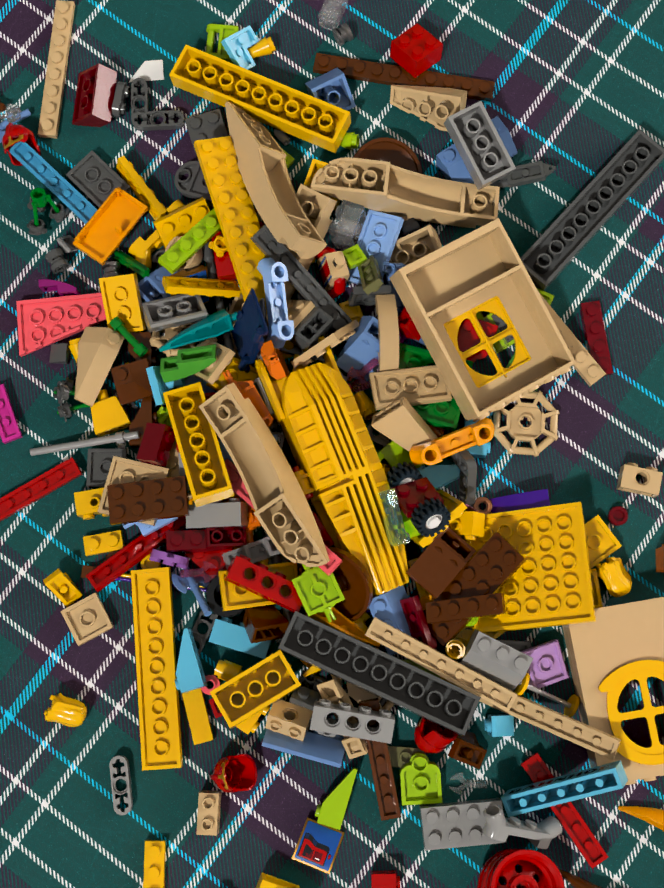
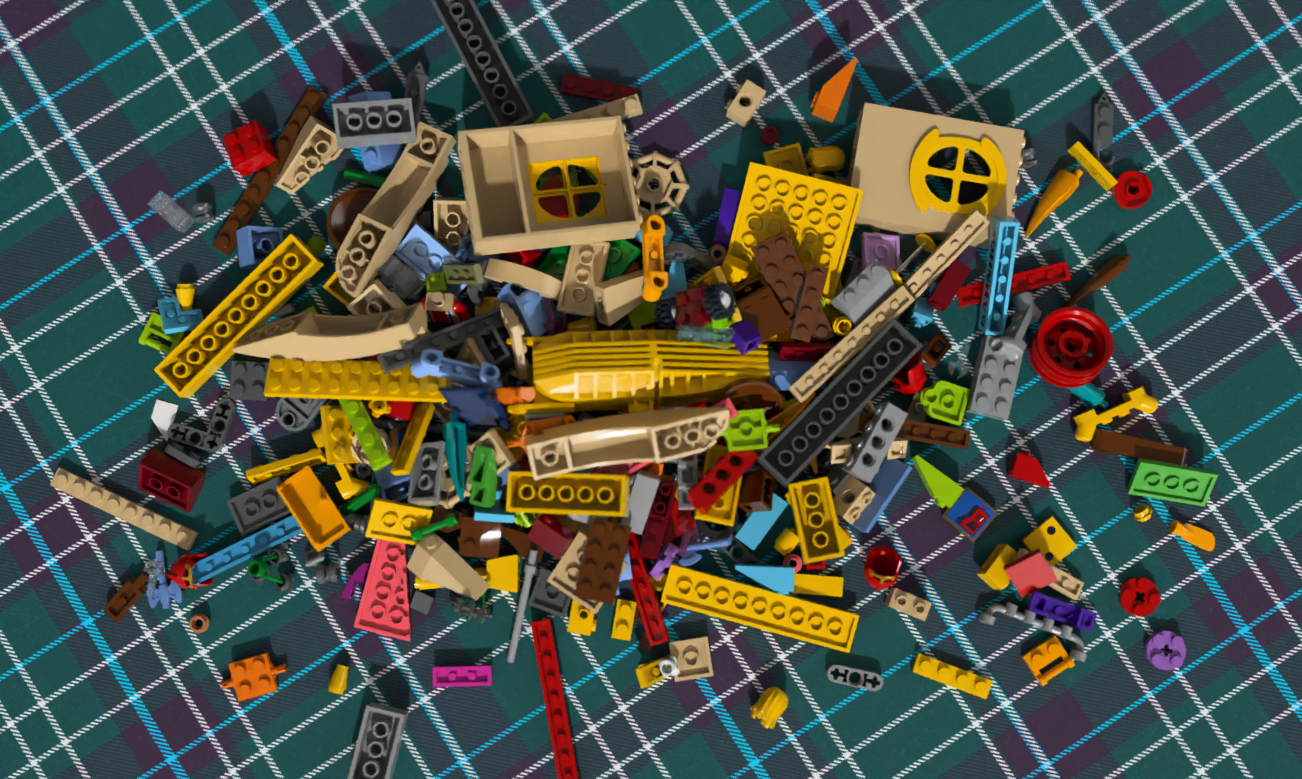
camera: 75 degrees left, 5 degrees up
(69, 596) = (665, 670): none -> white plate
(407, 557) = (745, 337): none -> dark purple brick
(429, 158) = (364, 177): none -> green axle
(535, 742) = (948, 285): none -> dark red slope

